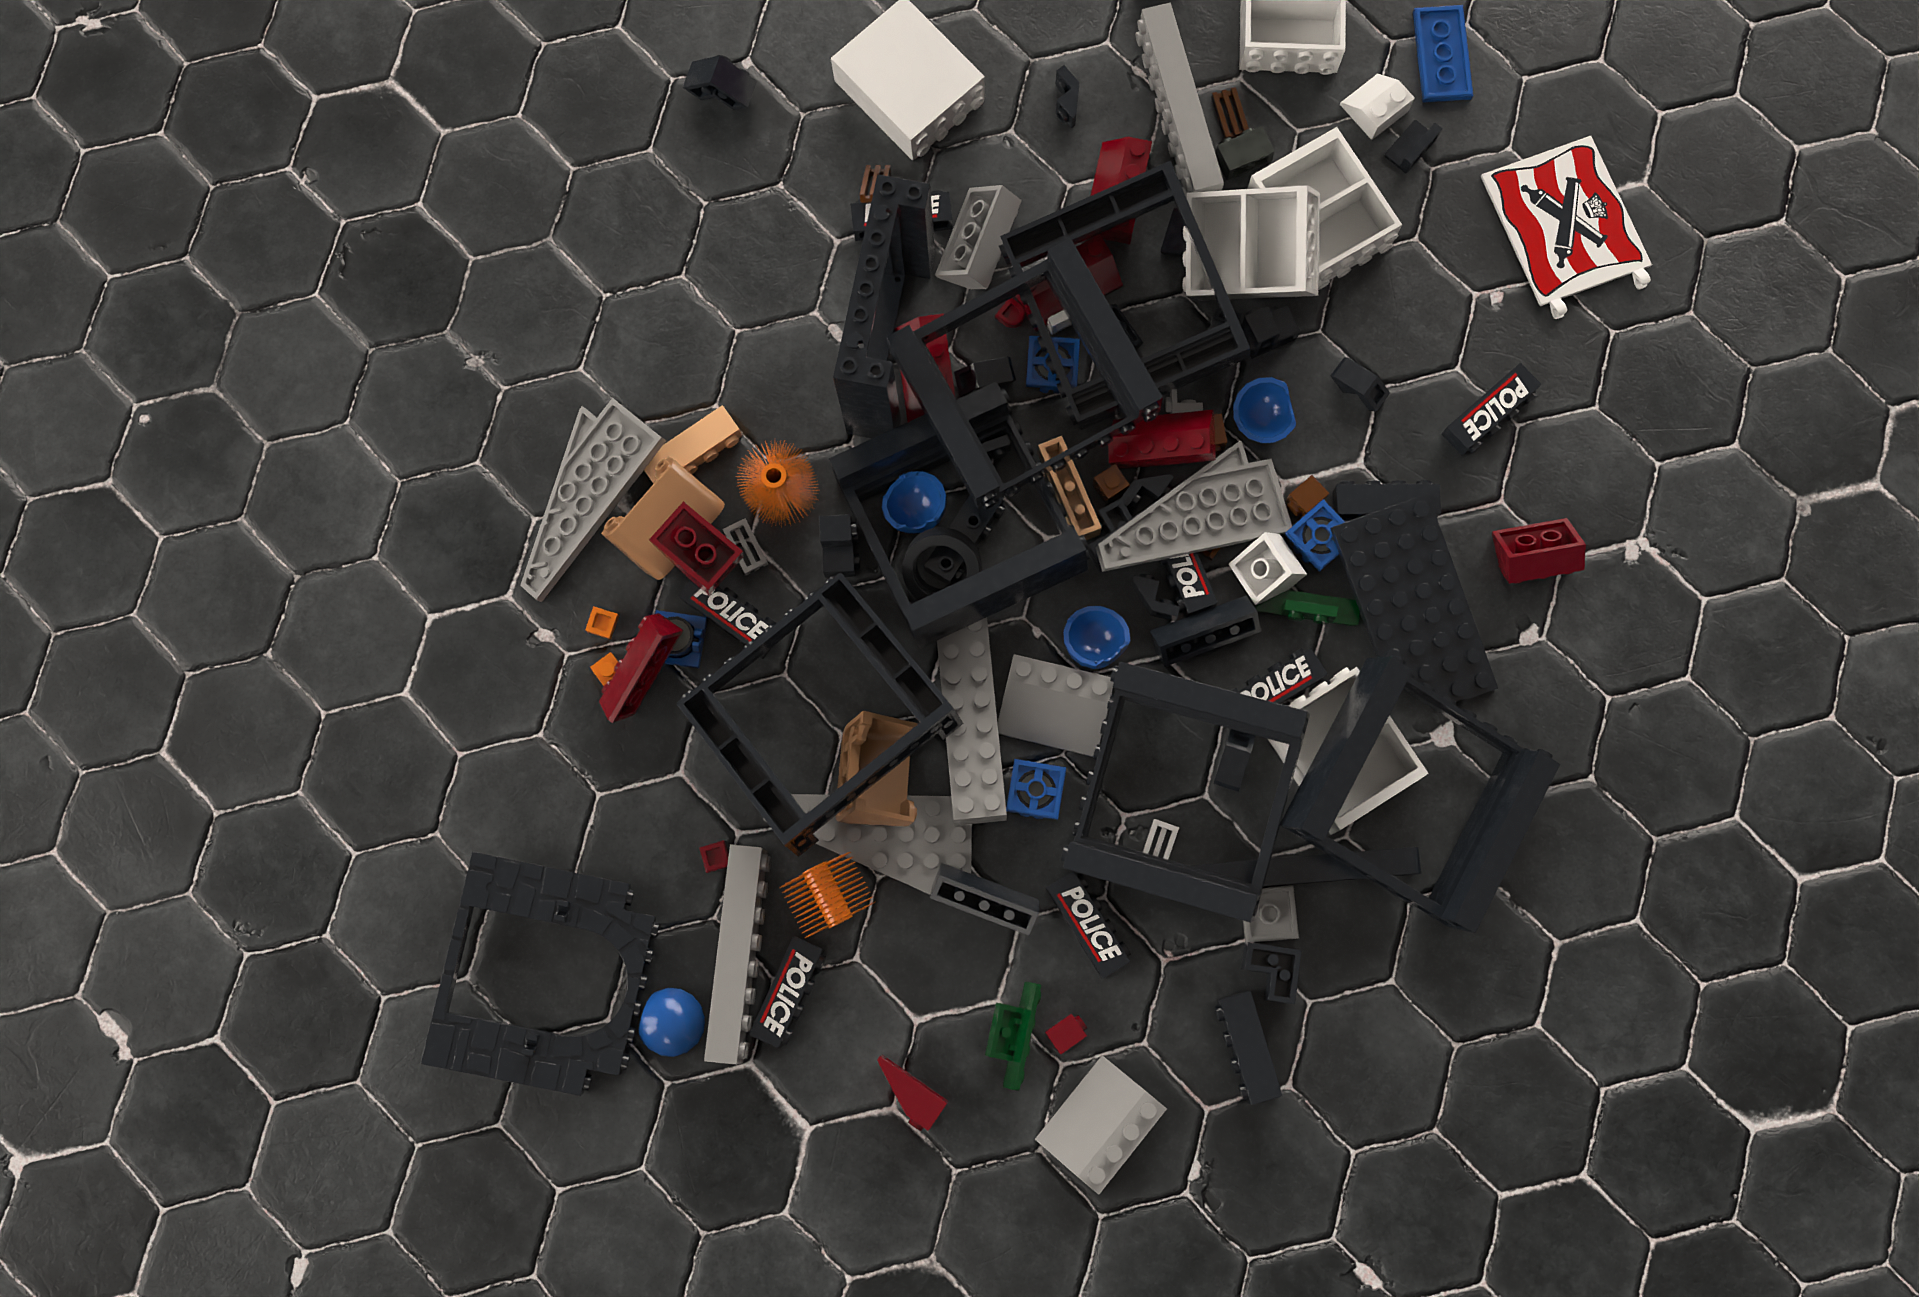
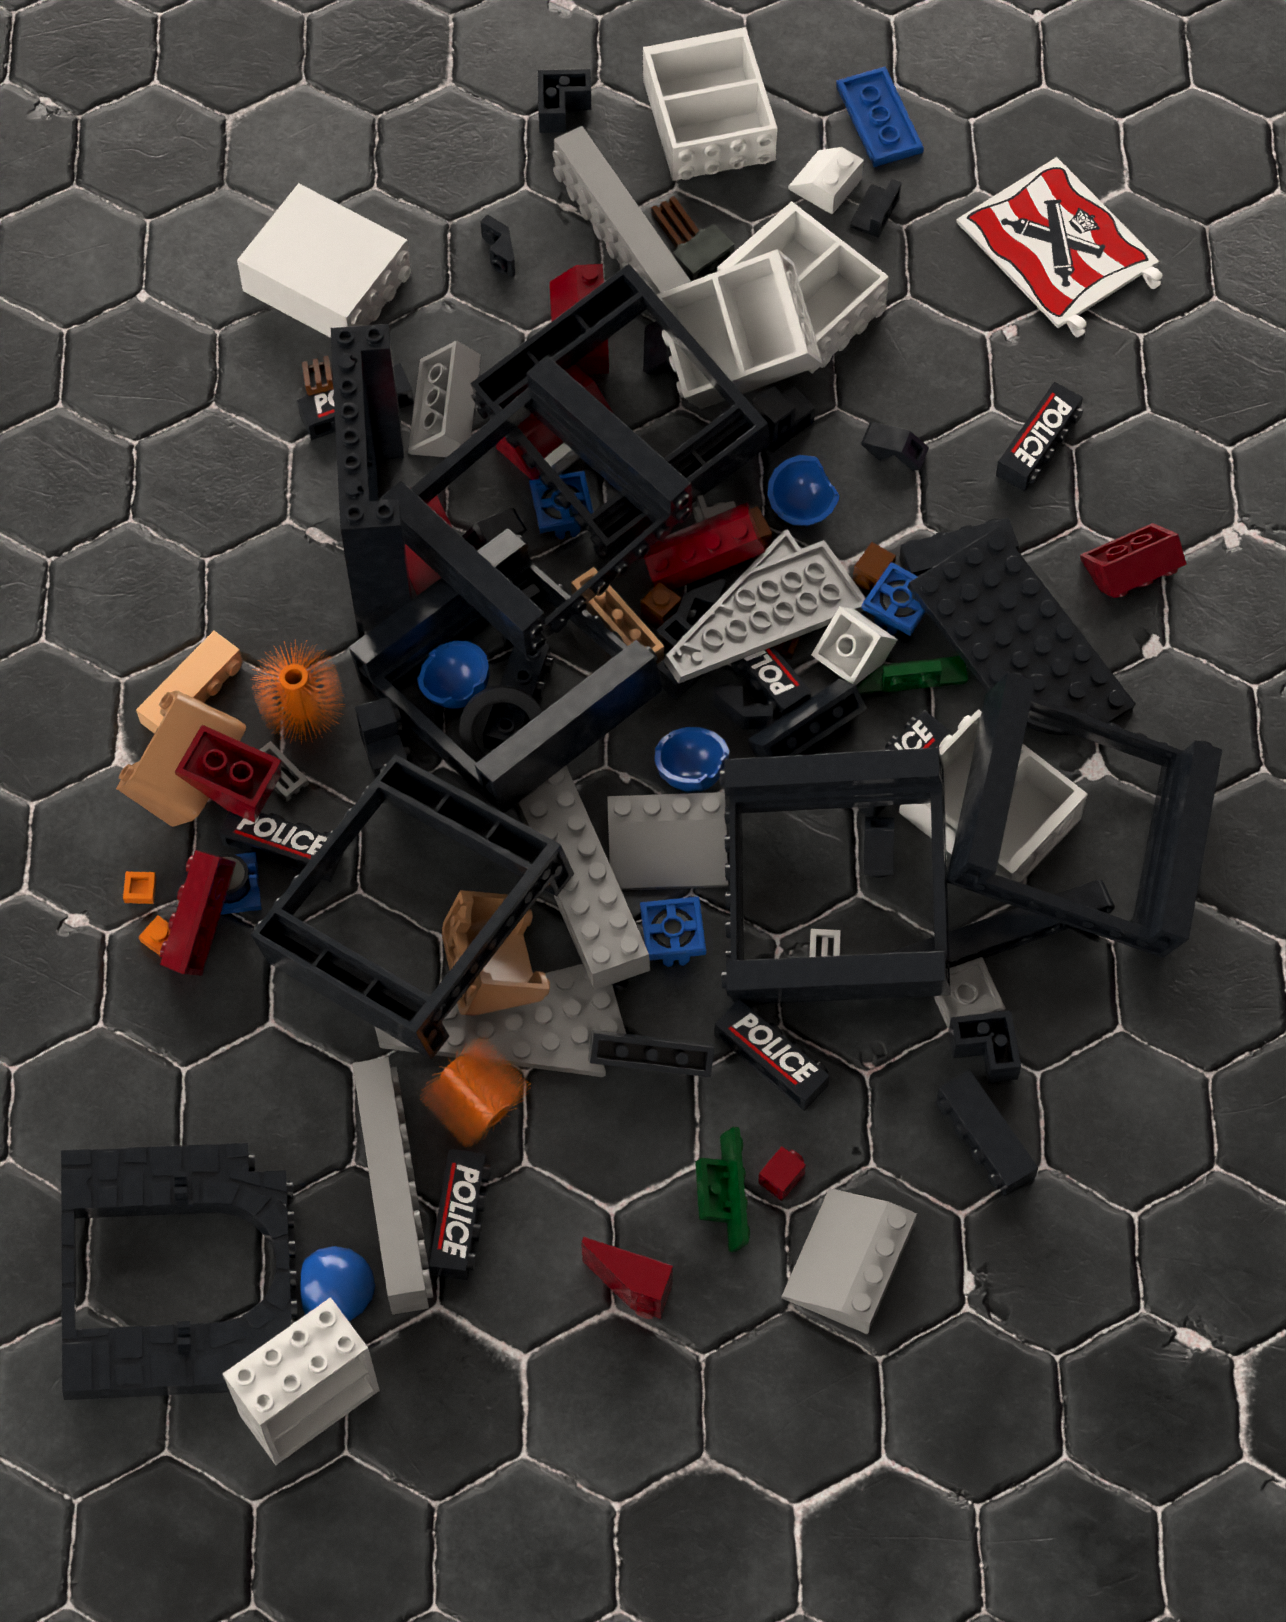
camera: 20 degrees left, 15 degrees down
(595, 474) = (87, 743): light grey wing -> none
(610, 1120) = (302, 1381): none -> white container
(715, 856) = (336, 1097): dark red tile -> none
(720, 80) = (120, 313): black brick -> none
(1011, 314) = (501, 470): dark red tile -> none

